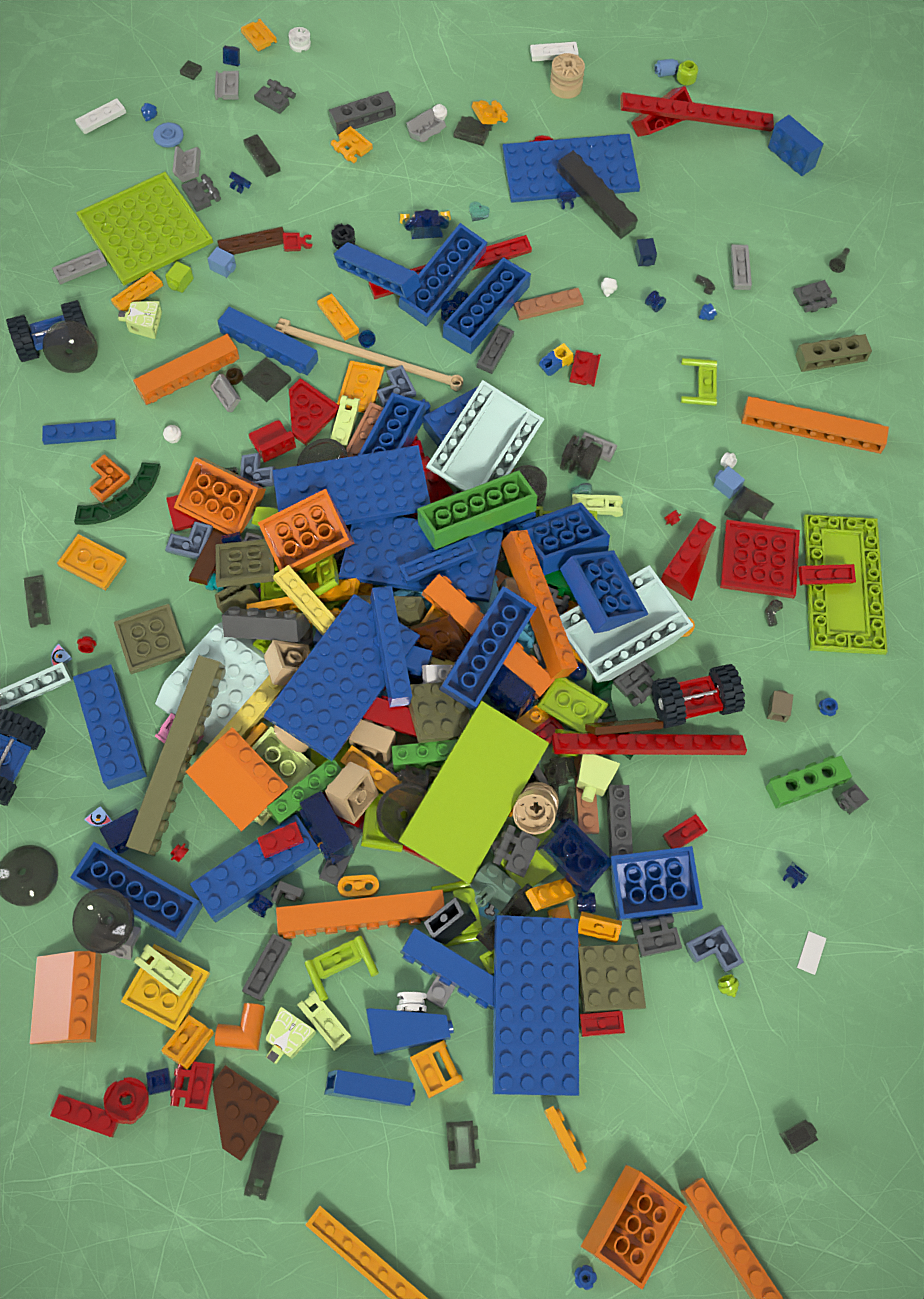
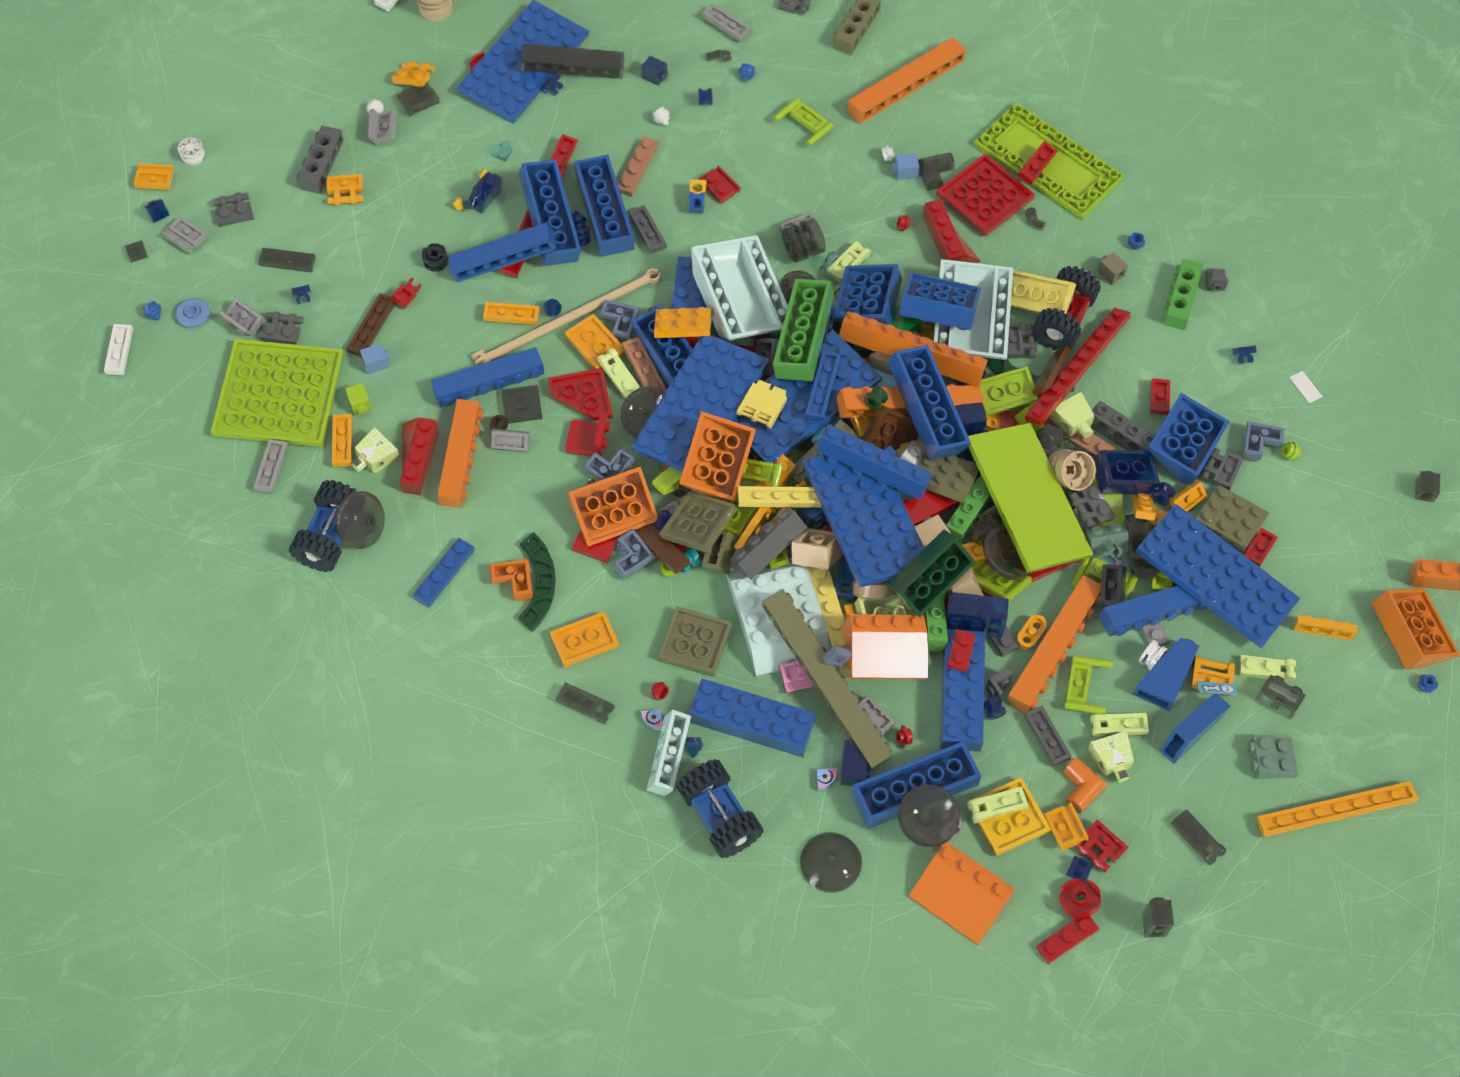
camera: 50 degrees left, 5 degrees down
(56, 701) = (693, 746): none -> plate
(147, 1181) = (1158, 917): none -> clear smoke brick
(161, 346) = (417, 449): none -> red wedge
(172, 434) = (512, 504): white plate -> none
(183, 816) = (877, 715): none -> light grey plate
(193, 746) = (837, 656): none -> sand blue plate
(240, 1111) = (1146, 827): reddish brown plate -> none
(319, 762) = (931, 573): none -> dark green brick
(386, 529) = (762, 403): none -> light yellow plate
(393, 1179) = (1272, 757): none -> sand green plate
(414, 425) = (682, 322): none -> light orange plate
(420, 1081) = (1218, 688): none -> medium azure sticker
(452, 605) = (876, 398): none -> dark green wheel
(483, 1113) = (1264, 667): none -> yellowish green plate
(691, 664) = (1038, 292): none -> light yellow tile

